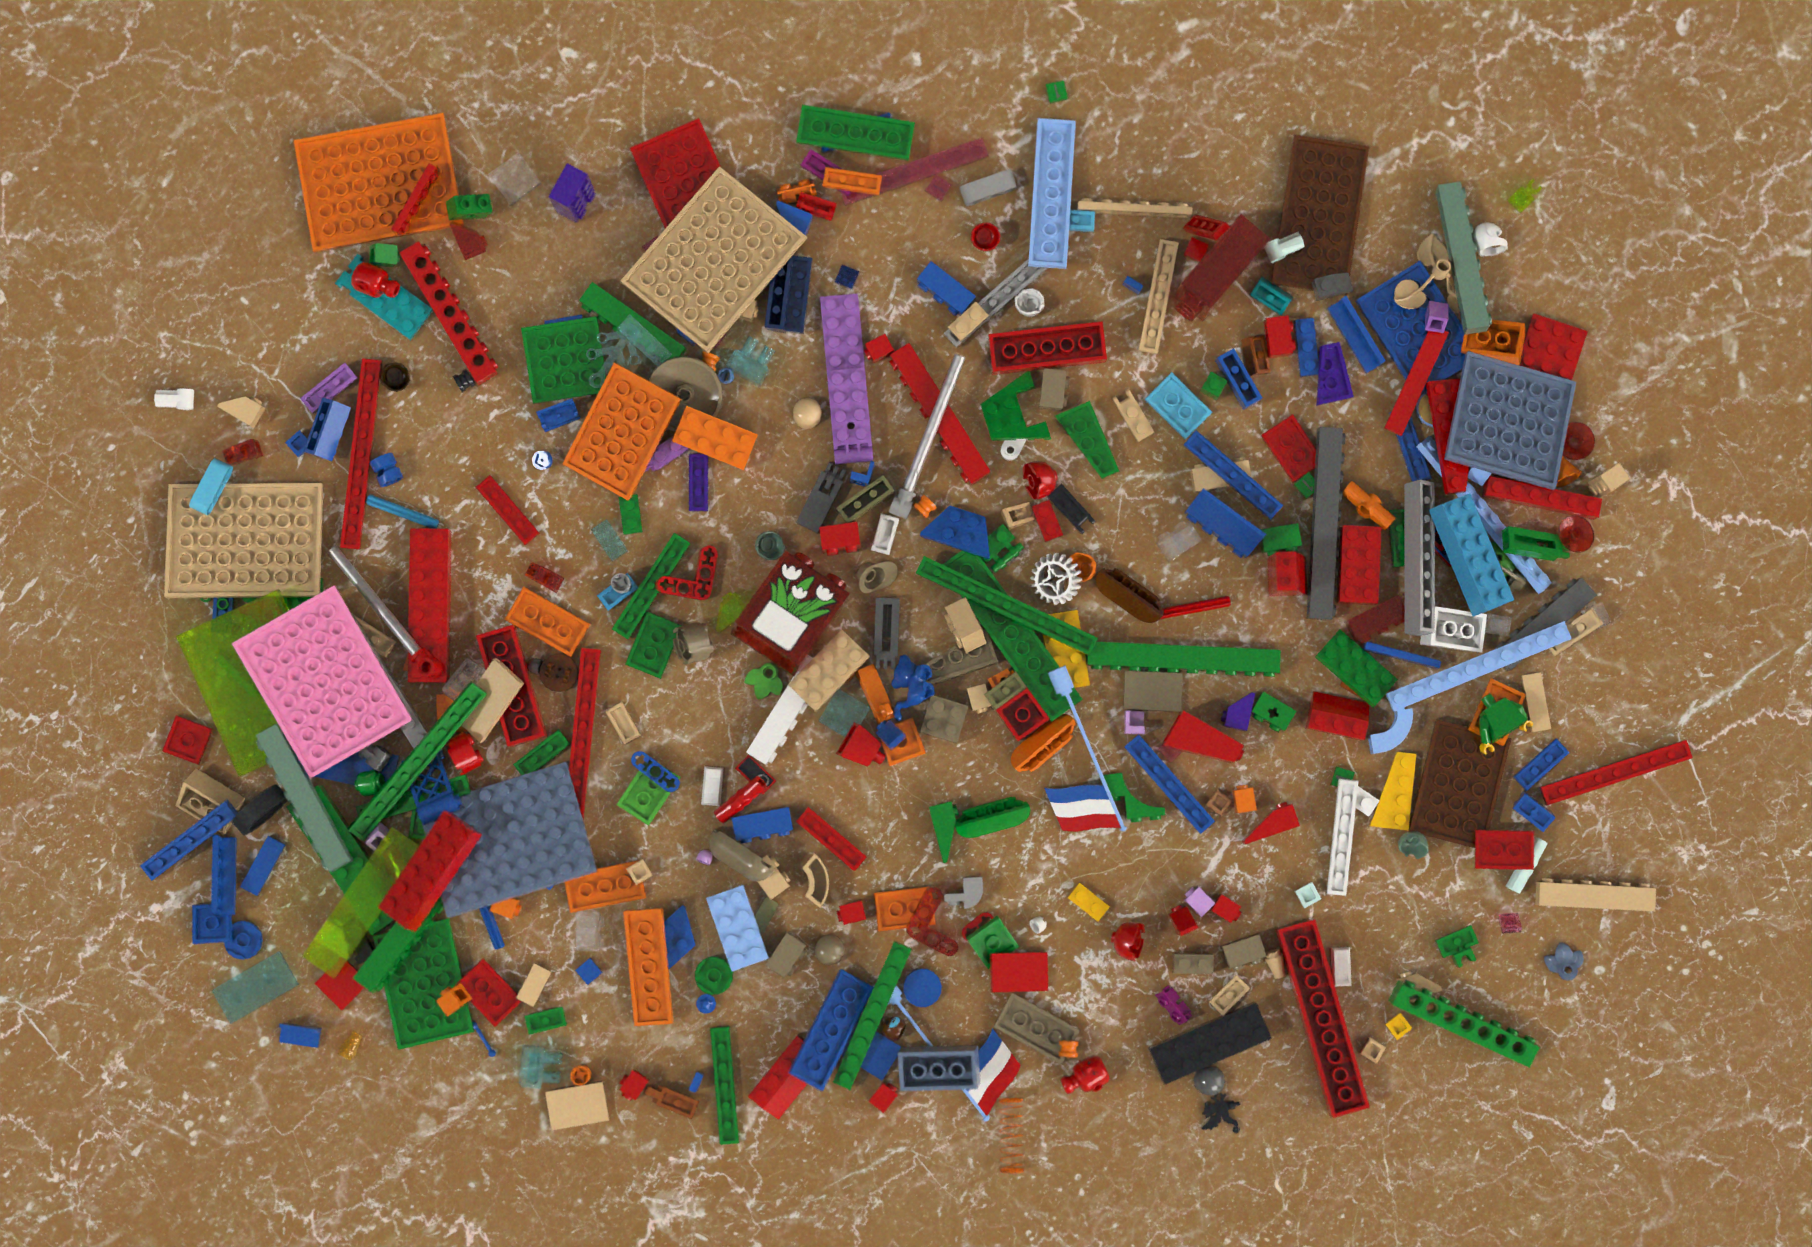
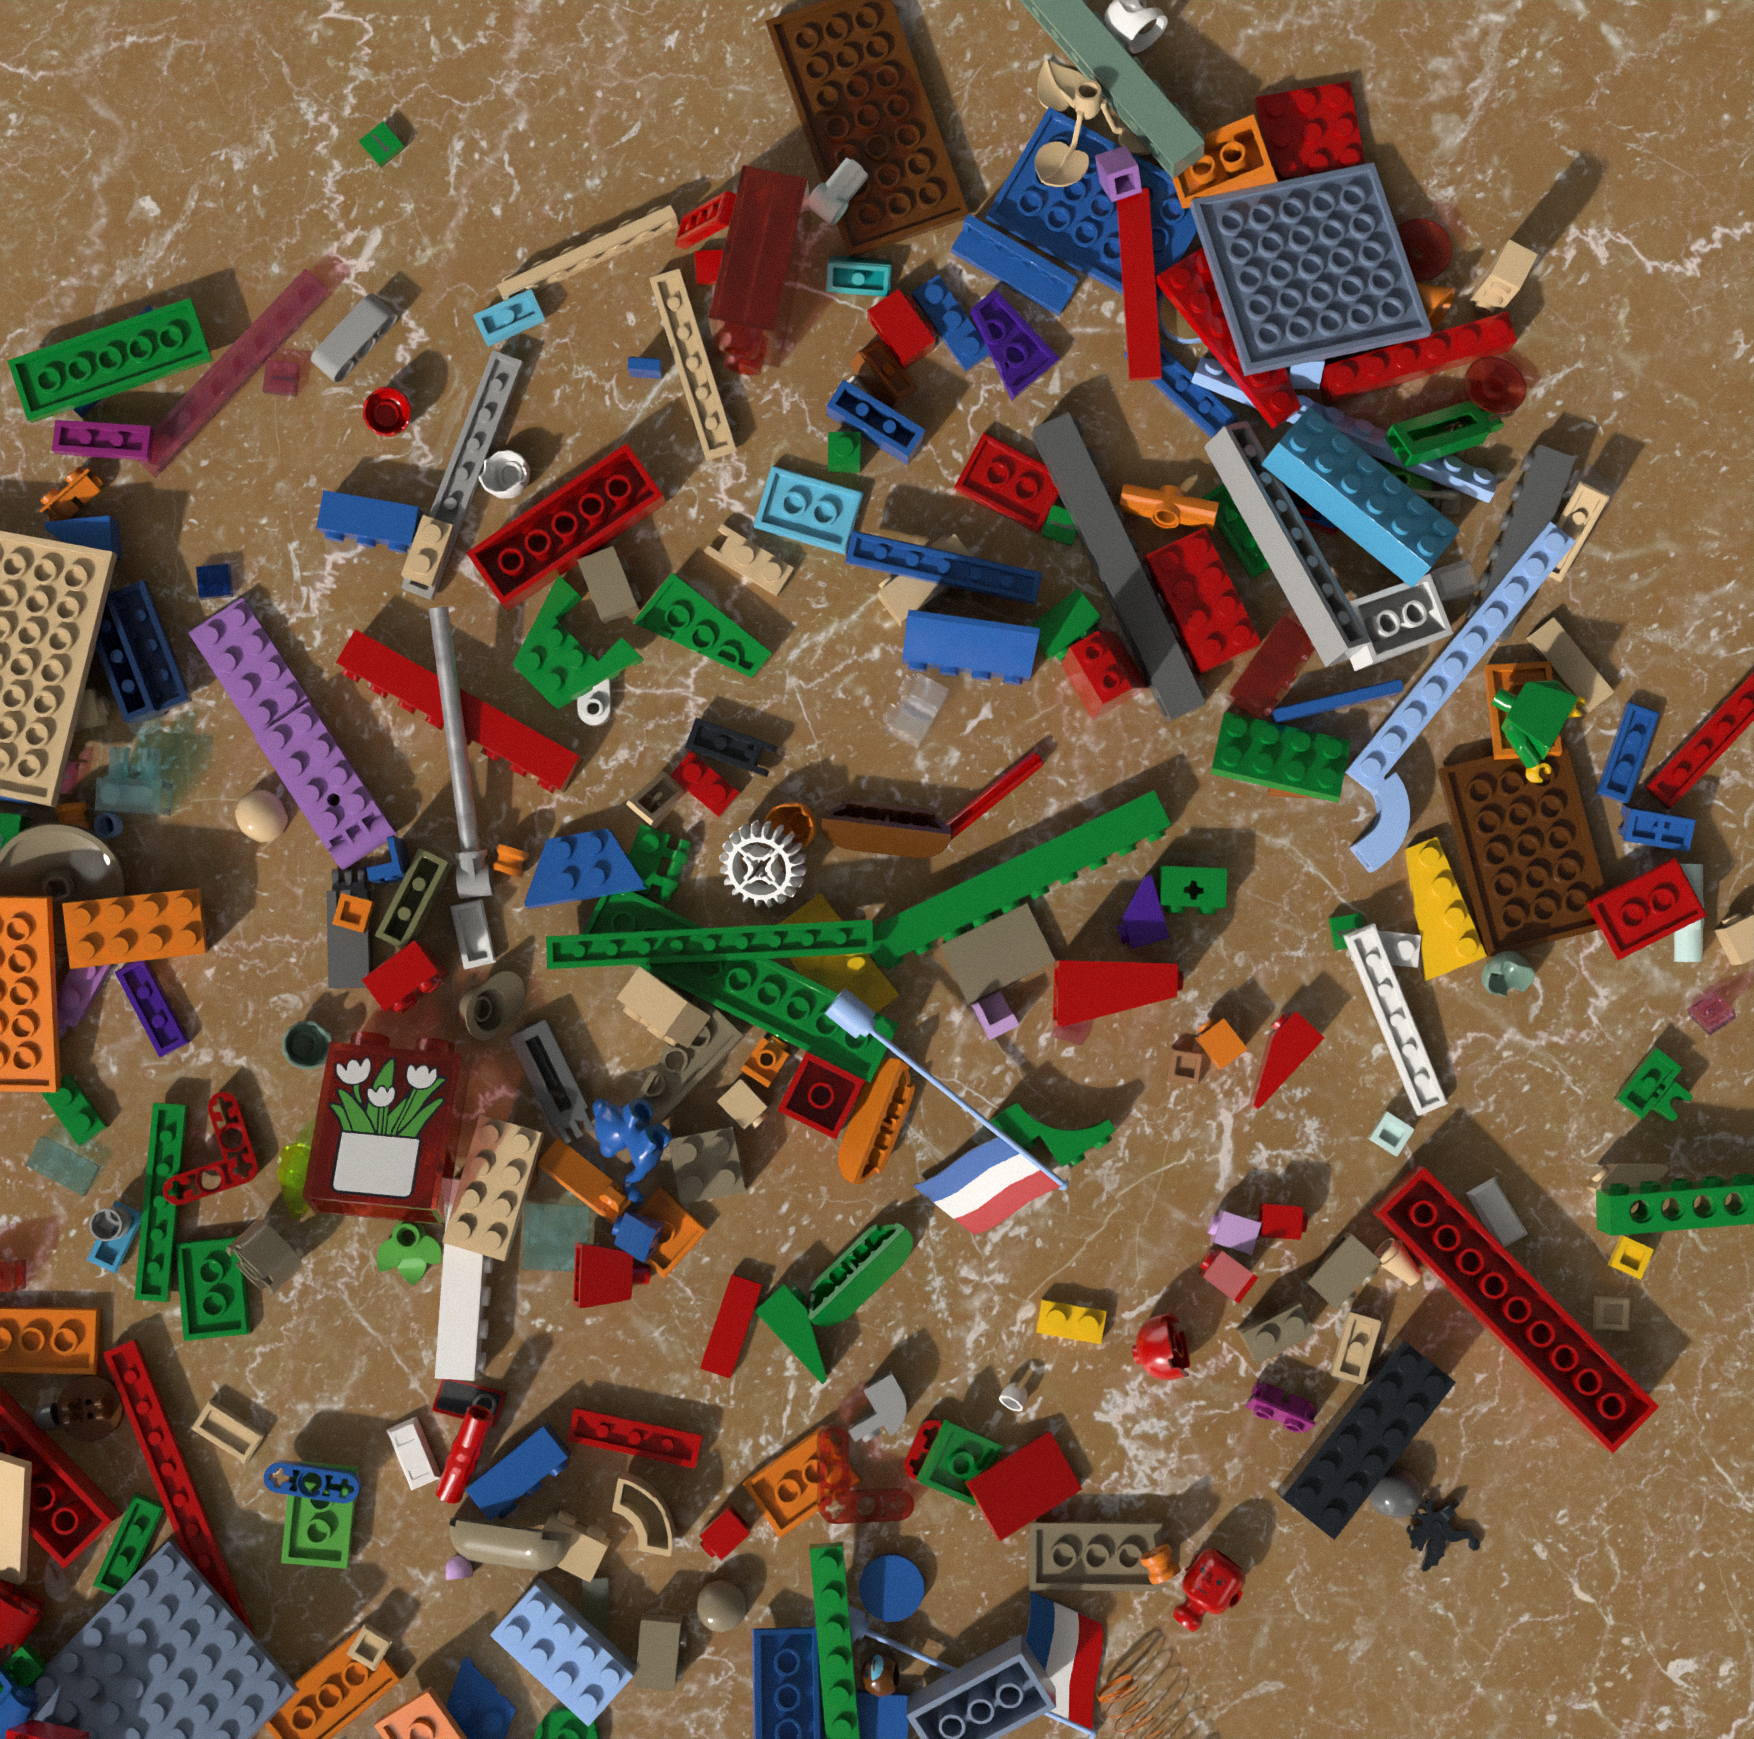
camera: 25 degrees left, 0 degrees up
(816, 206) = (111, 500): red hinge -> none
(830, 490) = (353, 913): none -> orange plate
(852, 181) = (141, 433): orange tile -> none
(878, 348) = (315, 663): red brick -> none
(911, 809) = (731, 1326): none -> red tile
(1005, 691) = (776, 1073): olive panel -> none
(1040, 479) = (660, 726): red cylinder -> none
(1052, 193) = (452, 296): light blue plate -> none
(1169, 784) = (1096, 1079): blue plate -> none
(1332, 286) = (939, 211): dark grey slope -> none
(1338, 716) = (1292, 842): red slope -> none

